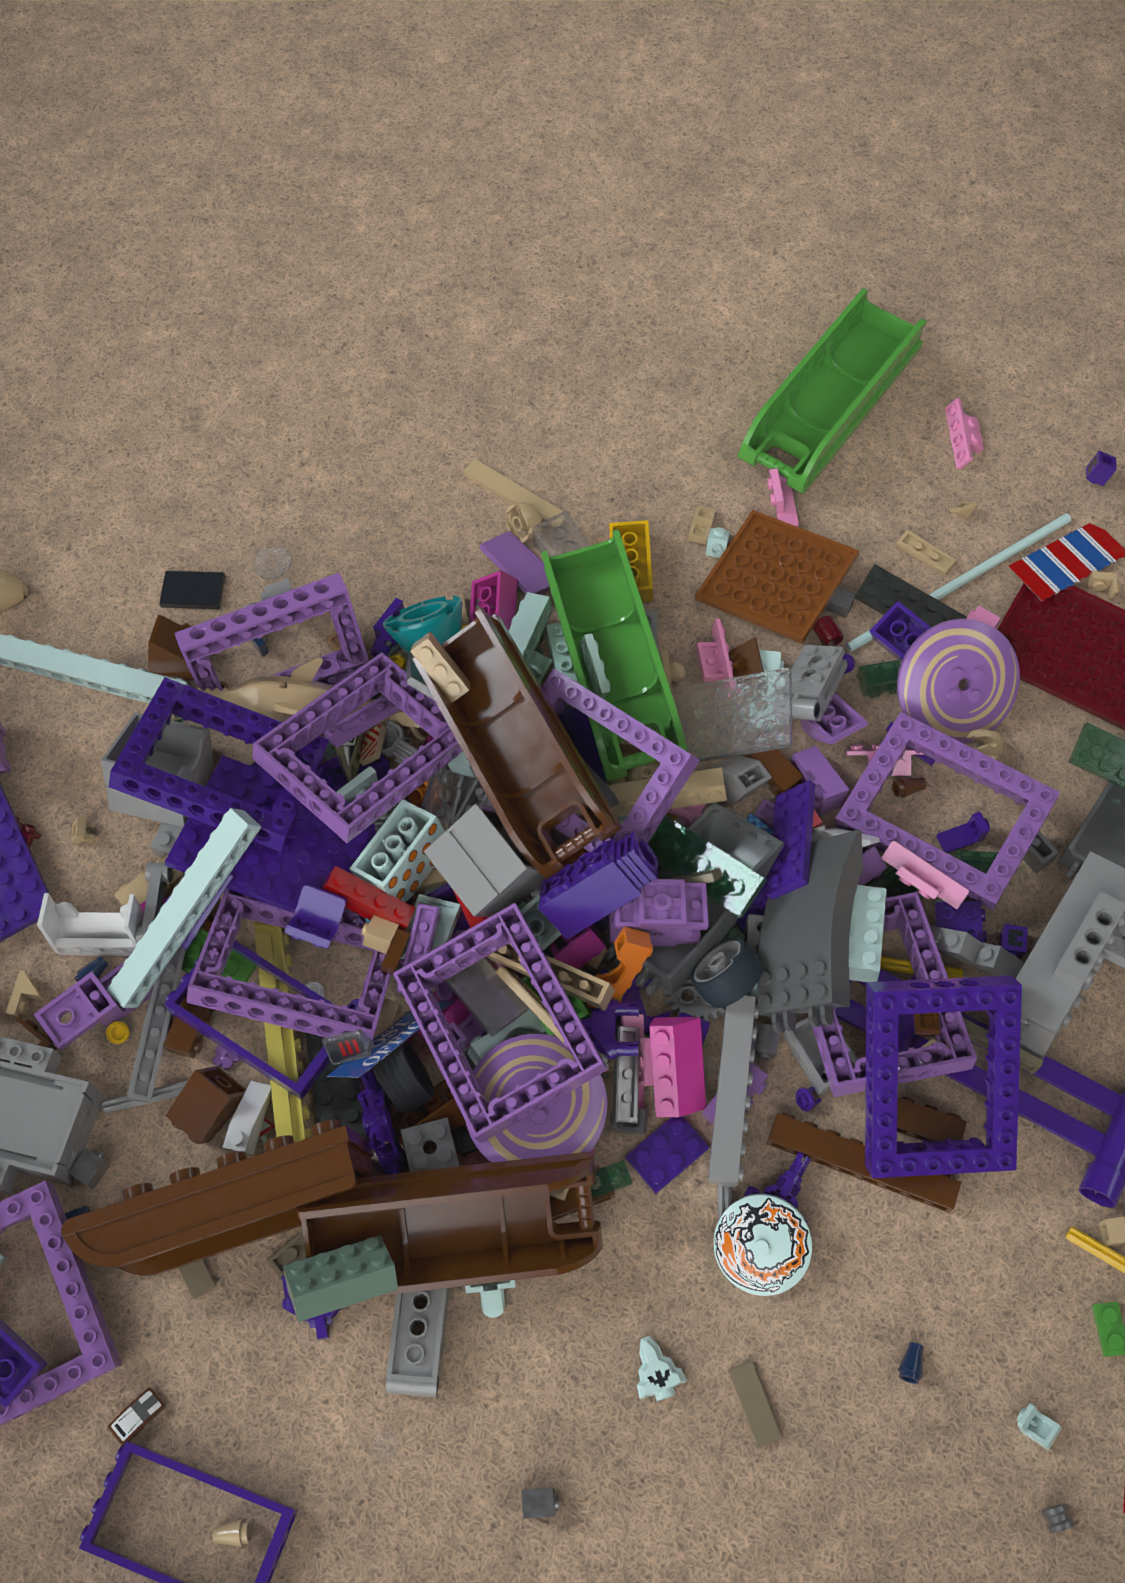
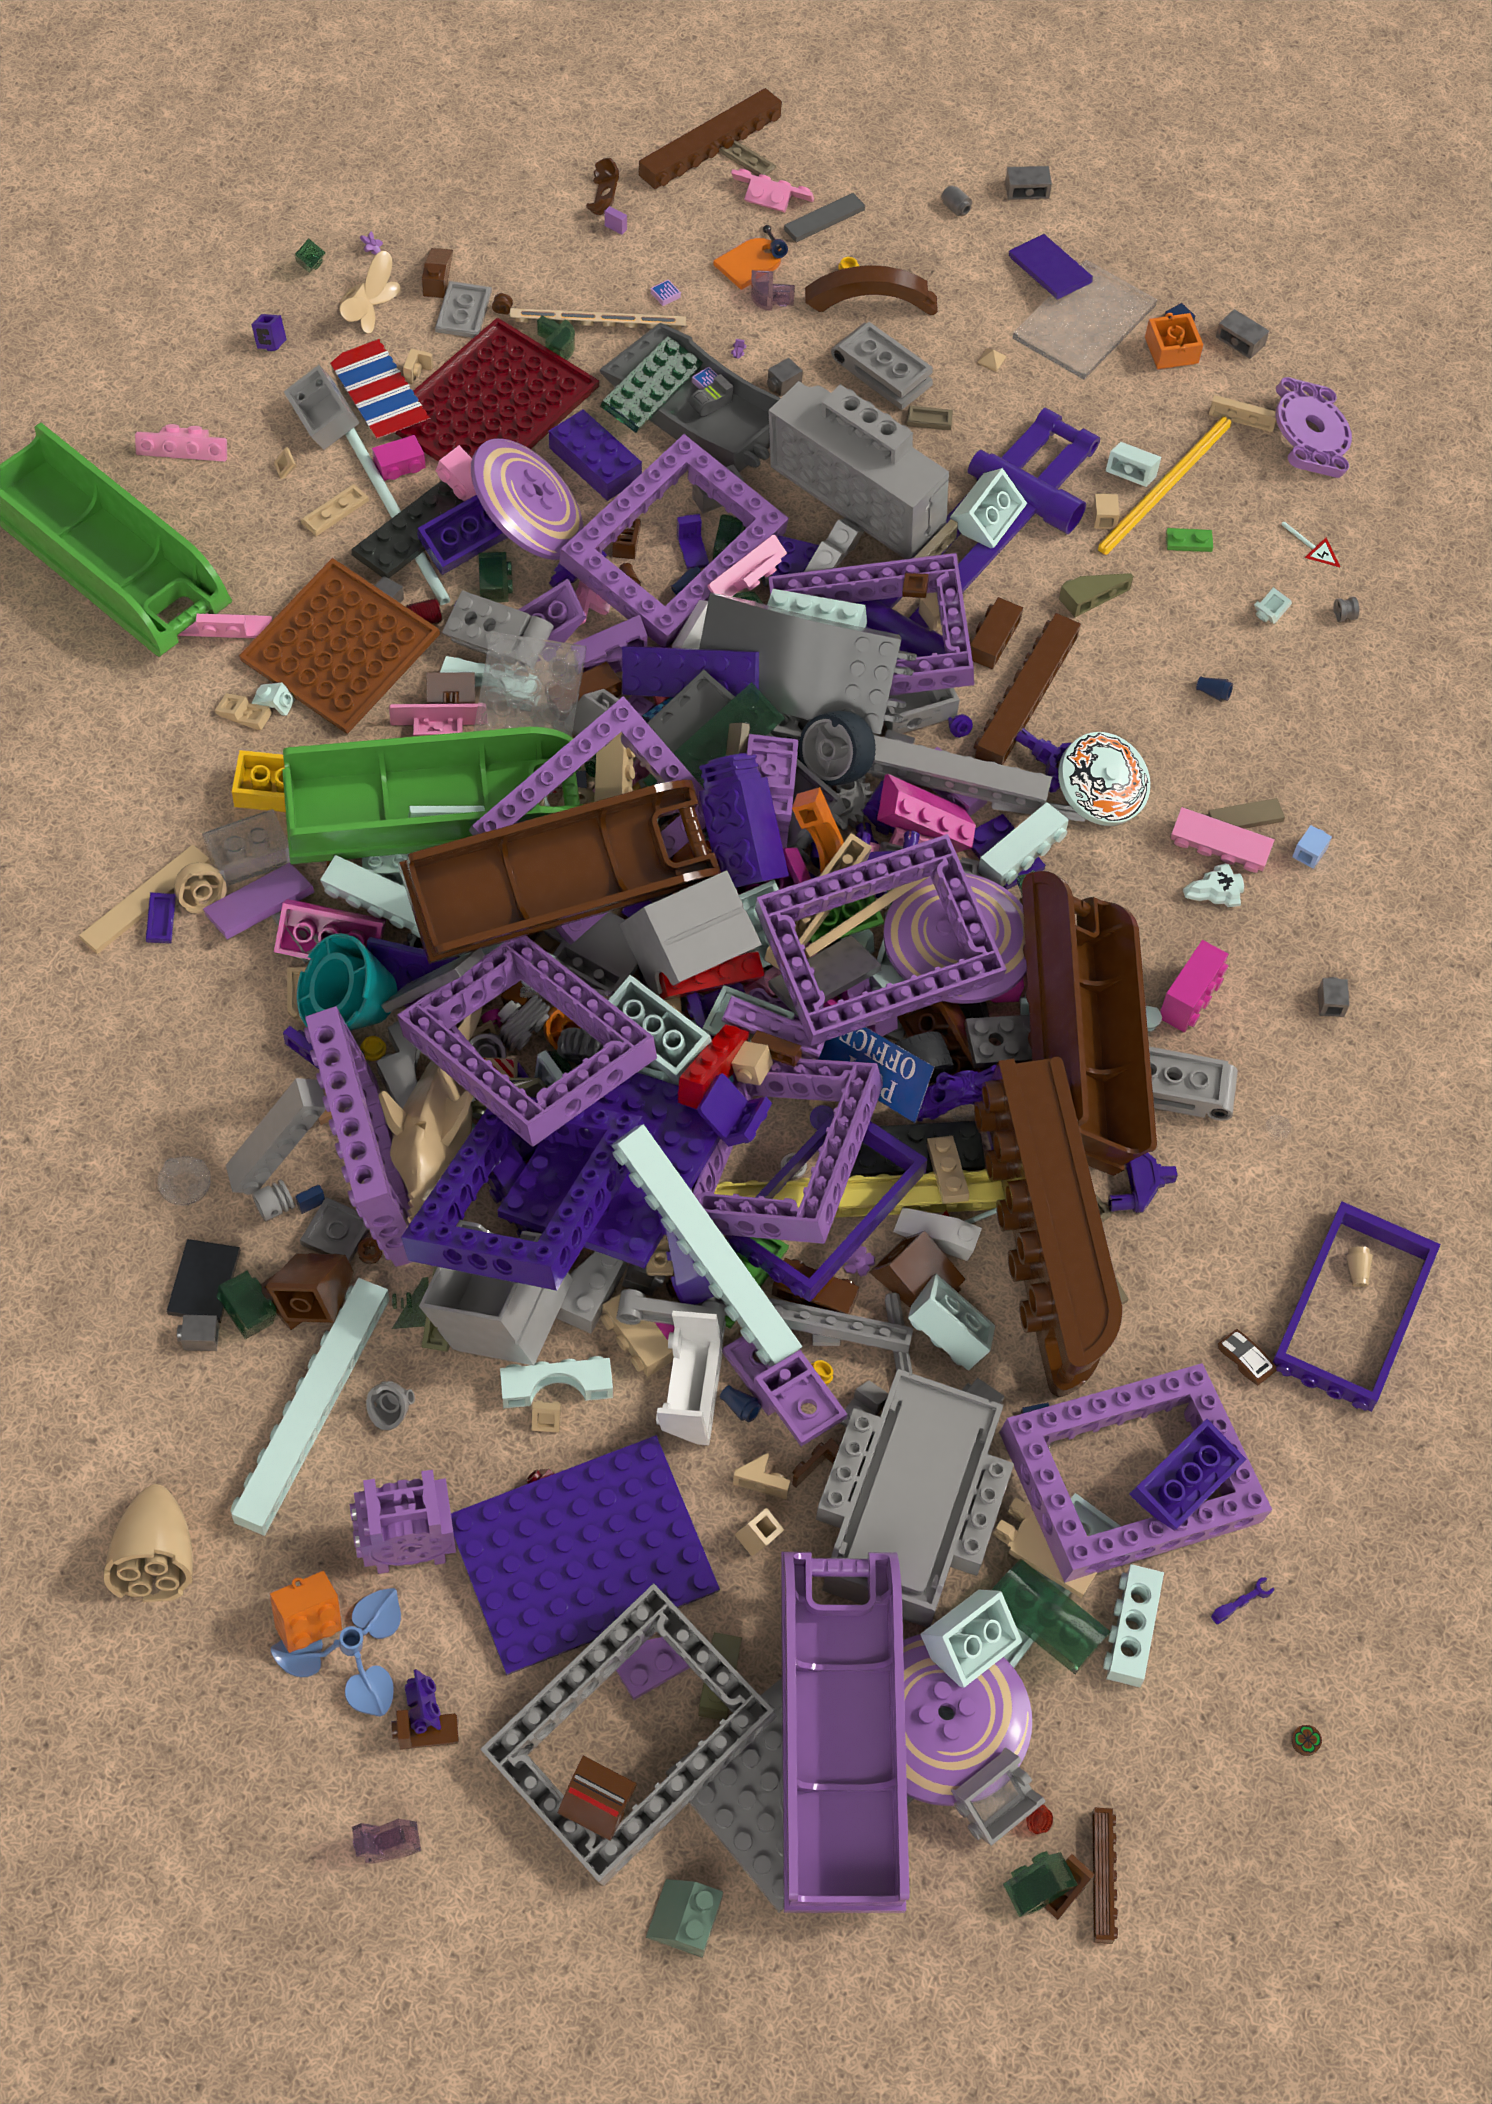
camera: 90 degrees left, 5 degrees down
(88, 722) = (391, 1403): none -> light grey helmet
(90, 1070) = (866, 1398): none -> light grey slope
(110, 857) = (588, 1376): none -> light aqua arch
(146, 593) = (198, 1333): none -> flat silver brick
(155, 1135) = (952, 1323): none -> light aqua slope
(170, 608) = (246, 1304): none -> clear green brick
(236, 665) = (335, 1230): none -> flat silver plate
(300, 1118) = (947, 1169): none -> tan plate
(340, 1278) = (1136, 1111): sand green brick -> none
(348, 1046) = (884, 1099): slope -> none
(440, 667) = (456, 925): tan brick -> none
(494, 505) = (160, 918): none -> dark purple tile
(524, 1347) = (1194, 986): none -> dark pink brick
(661, 1164) = (1023, 845): none -> light aqua brick
(711, 1375) = (1221, 839): none -> bright pink brick
(724, 1478) = (1312, 846): none -> light blue brick
(884, 1002) = (1023, 649): dark purple brick -> none
(919, 833) = (685, 579): none -> dark blue cone
(945, 781) = (626, 545): none -> reddish brown slope
(990, 742) = (594, 499): tan piece -> none
(993, 587) = (399, 458): none -> dark pink brick
(1004, 1218) = (1091, 591): none -> olive slope
(1014, 939) = (815, 527): dark purple brick -> none
(1026, 518) = (321, 407): none -> light grey piece
(1044, 738) = (594, 454): none -> dark purple brick
(1074, 1102) = (989, 508): none -> light aqua slope

